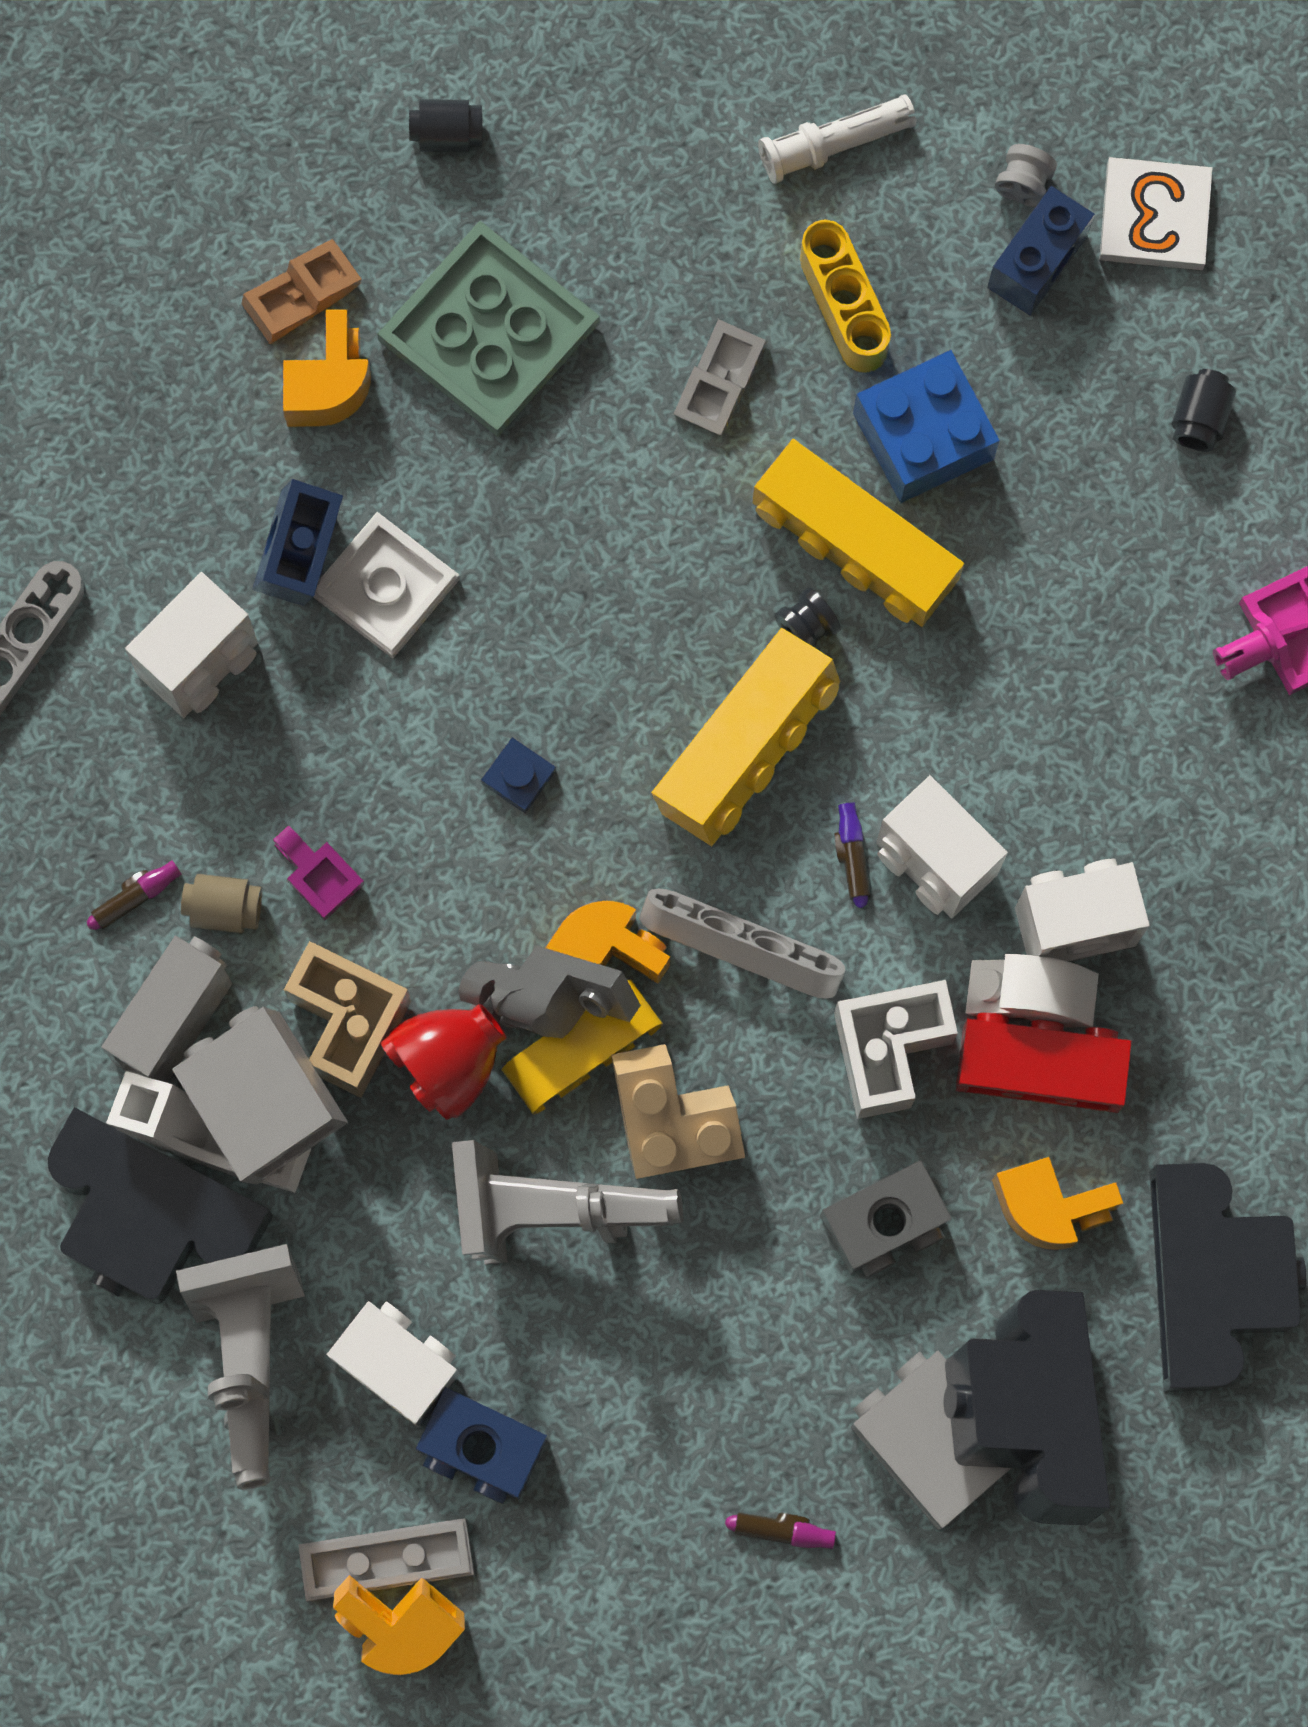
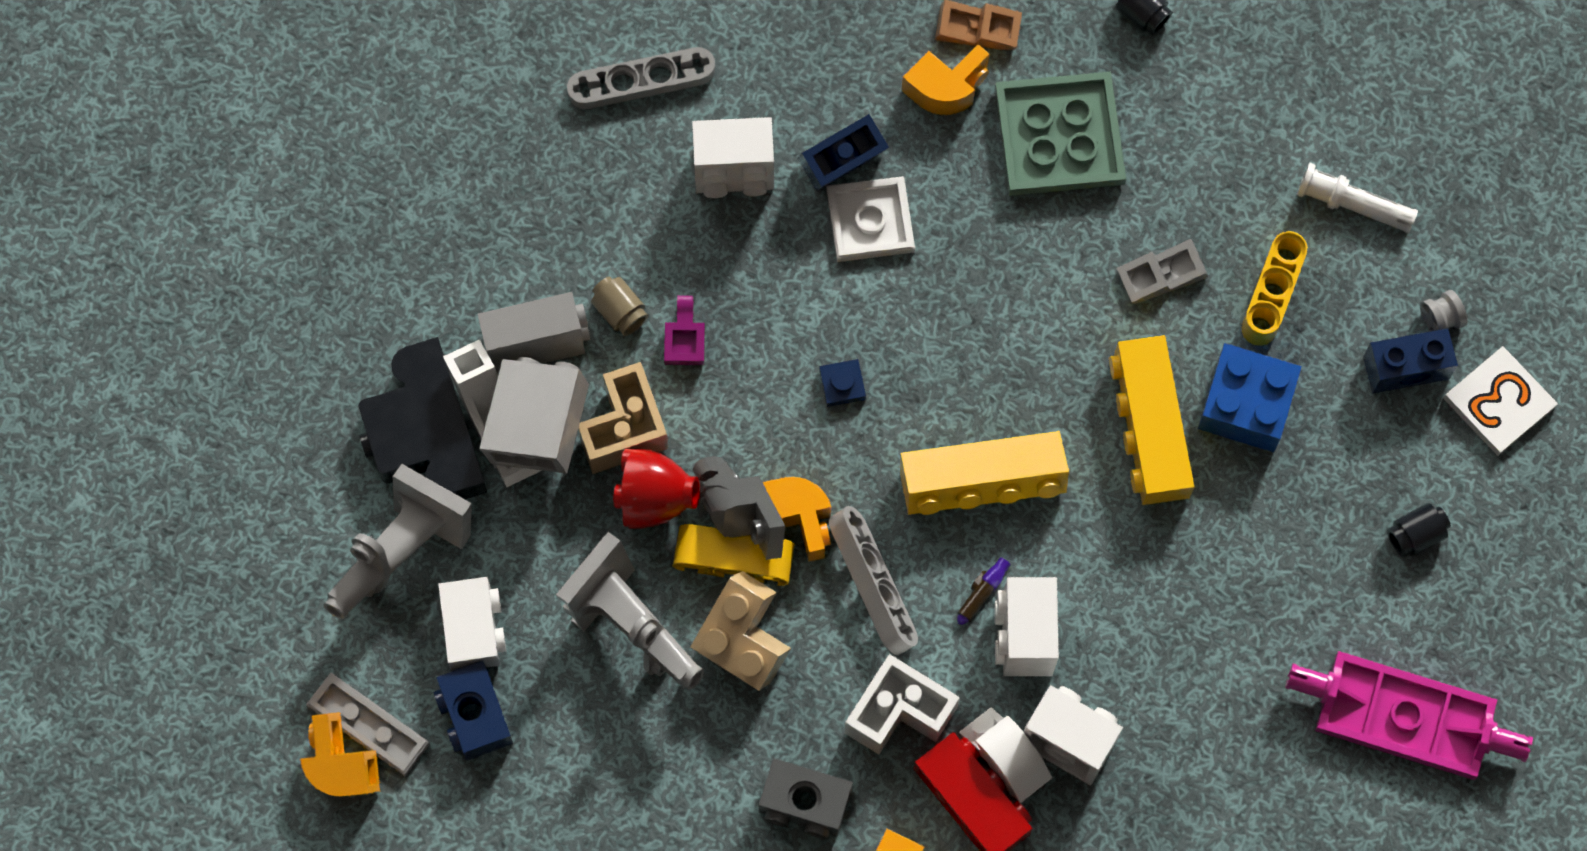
camera: 45 degrees right, 5 degrees down
(134, 892) = (581, 259): piece -> none
(808, 618) = (1080, 442): black wheel -> none

